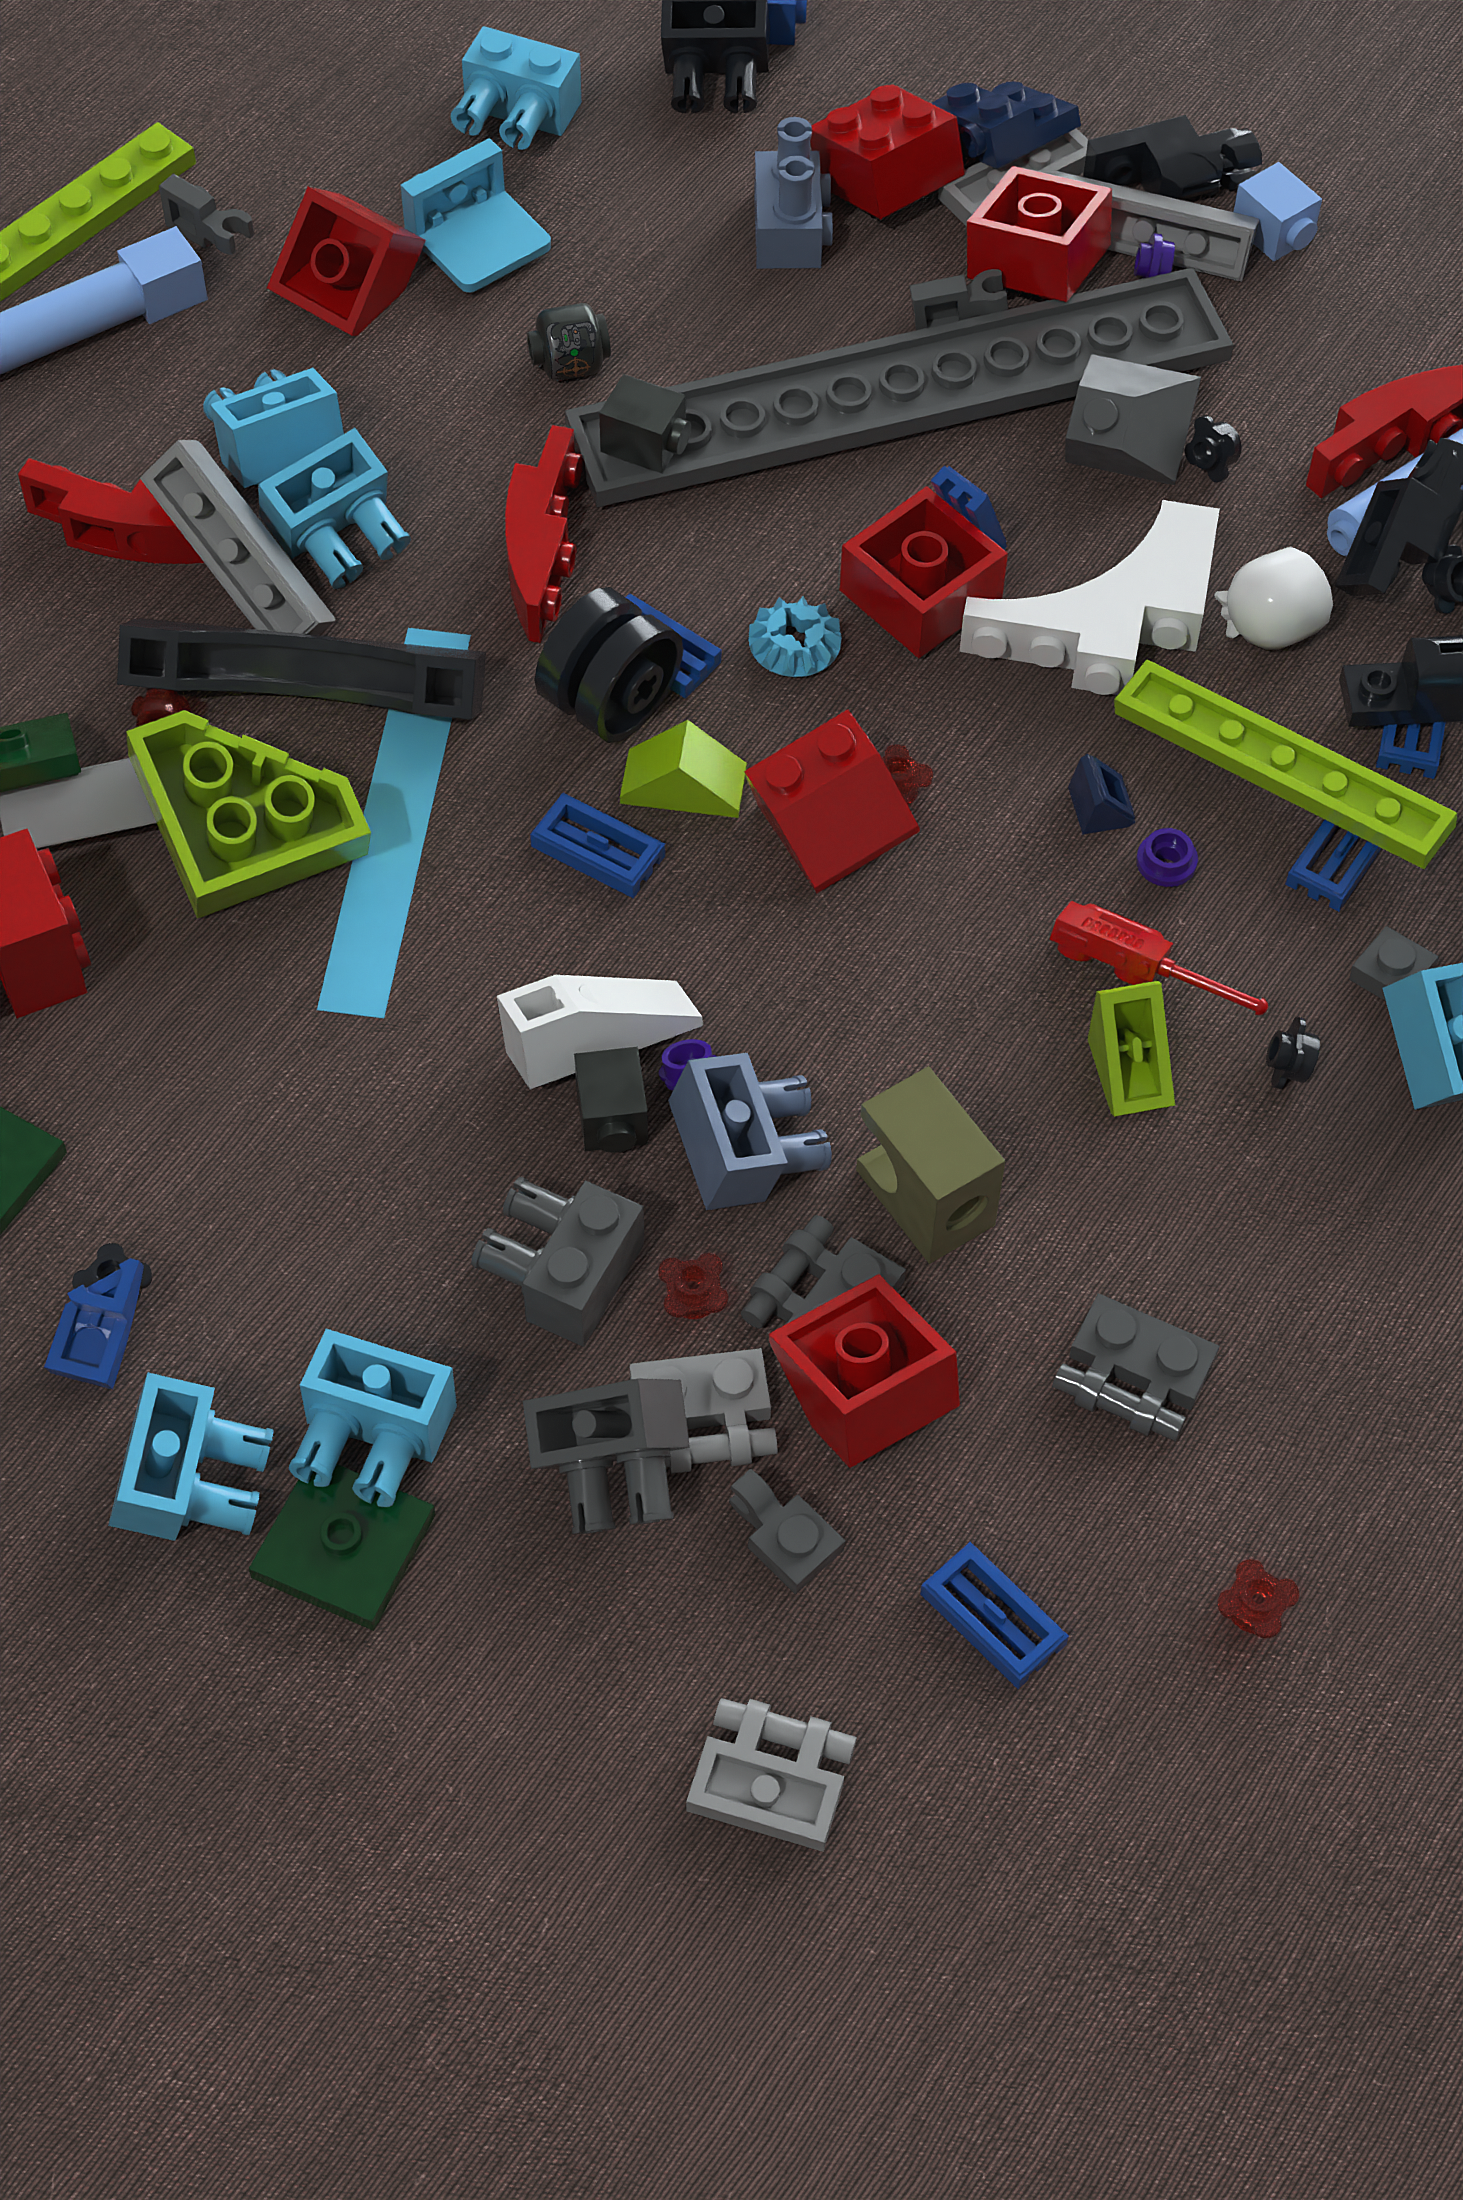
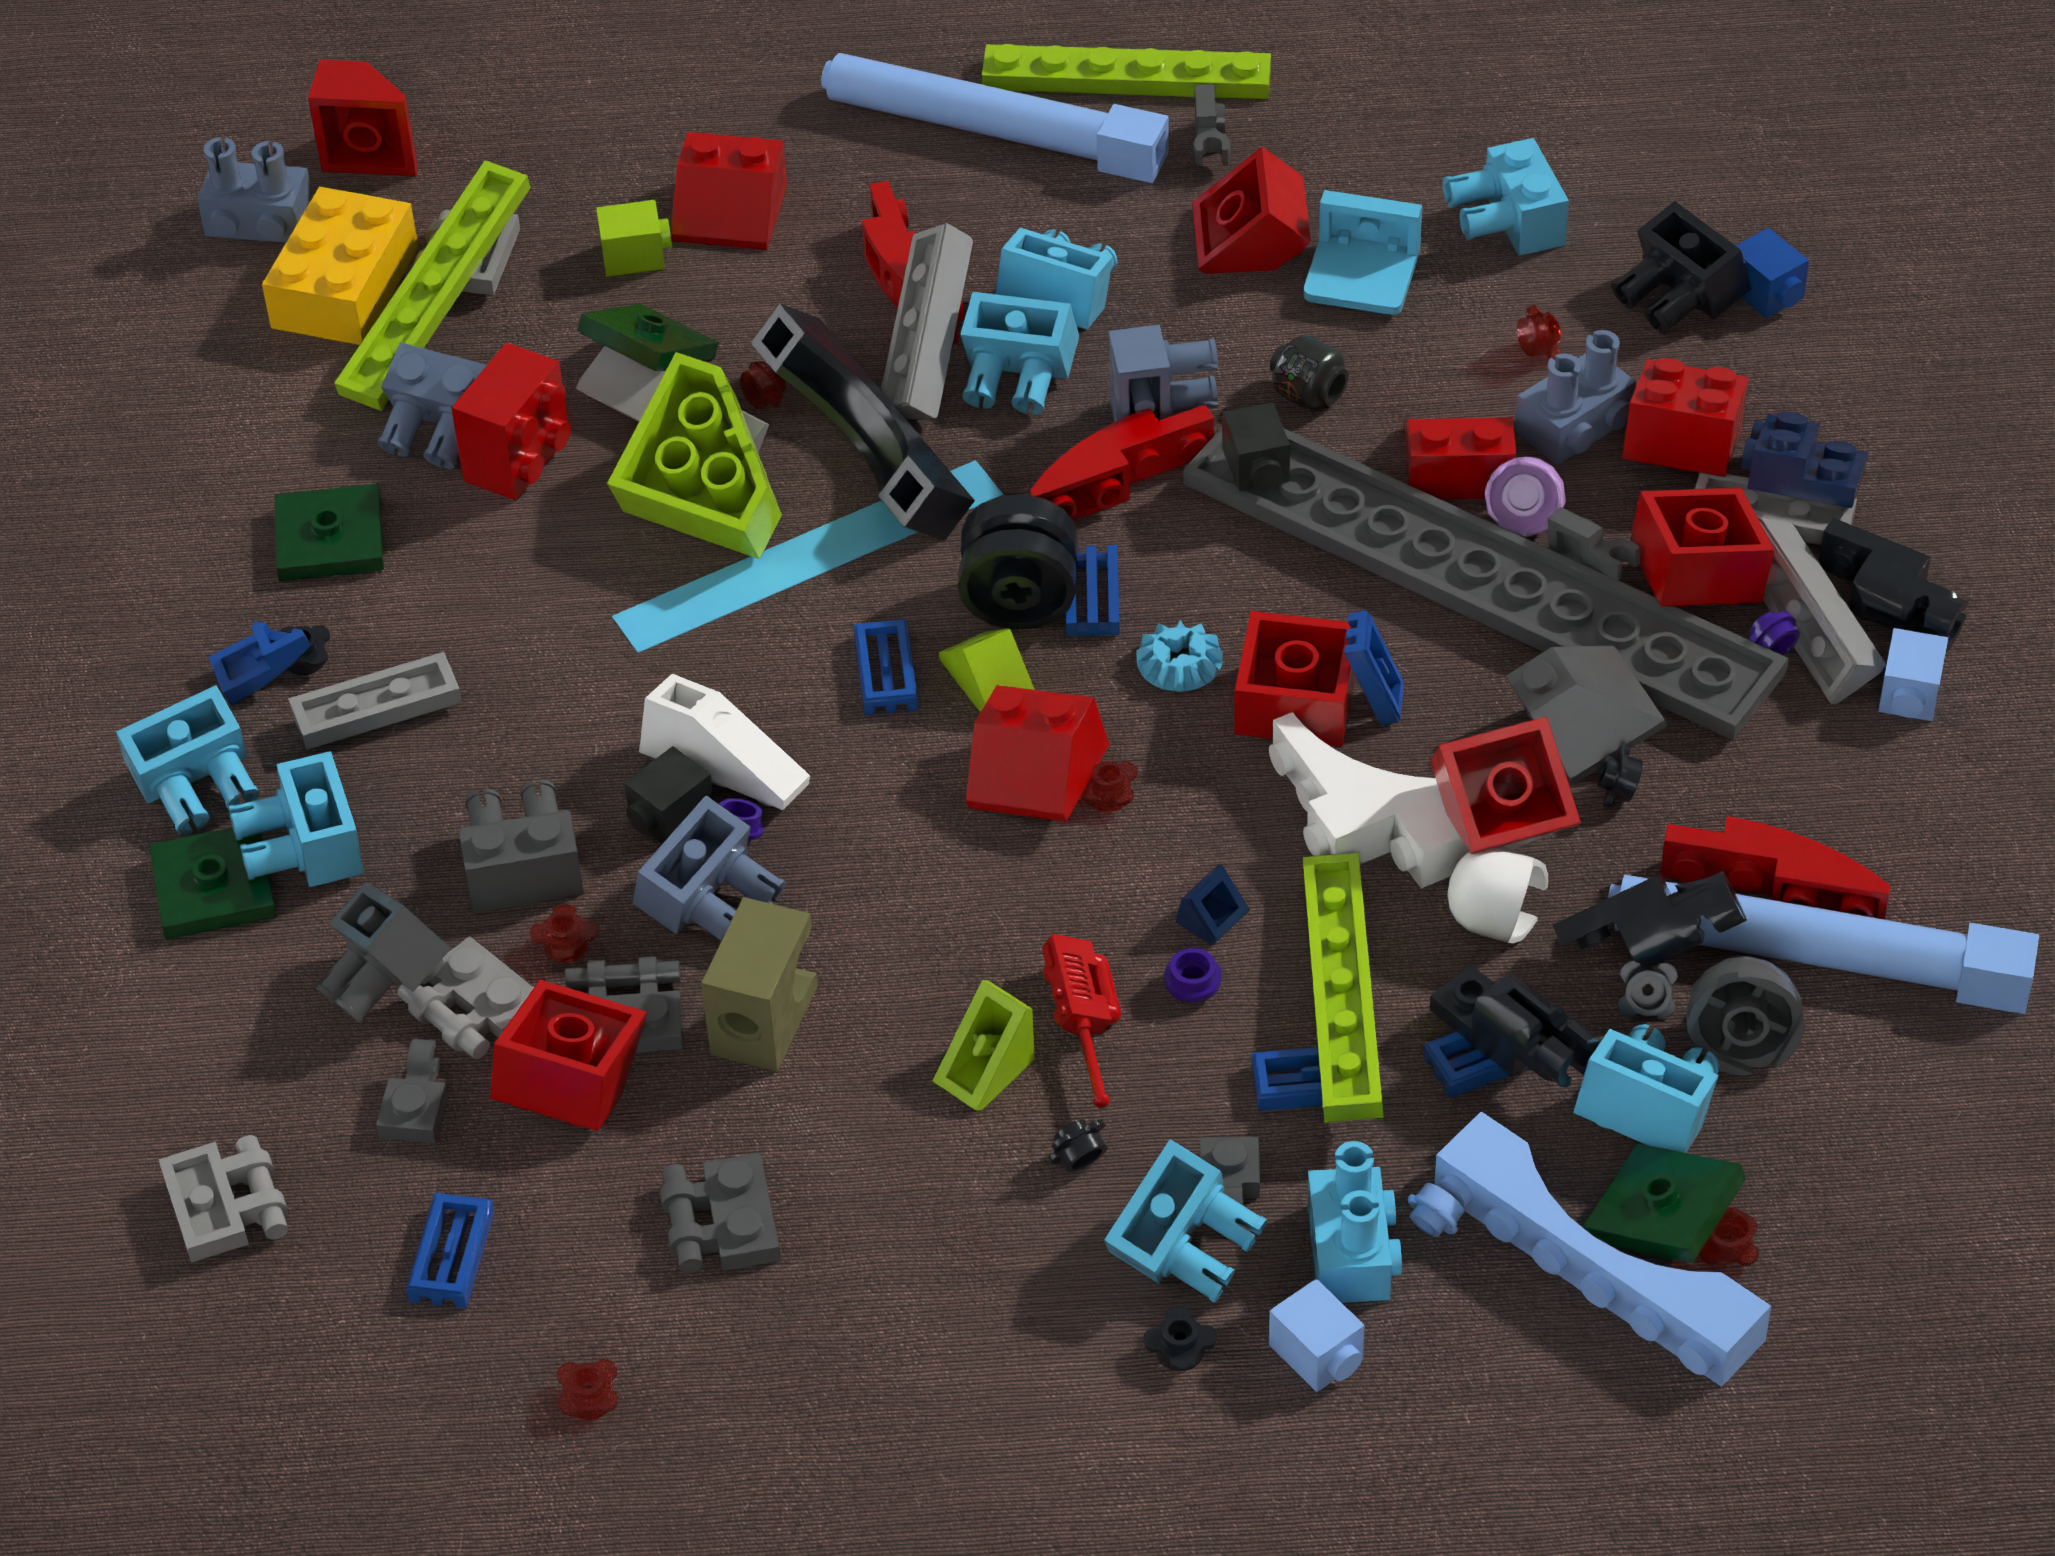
camera: 55 degrees right, 10 degrees down
(248, 1261) = (375, 700): none -> light grey plate
(483, 438) = (1144, 366): none -> sand blue brick
(681, 176) = (1538, 333): none -> clear red plate
(761, 309) = (1456, 454): none -> red slope
(866, 299) = (1524, 495): none -> lavender hair
(1213, 510) = (1505, 785): none -> red slope

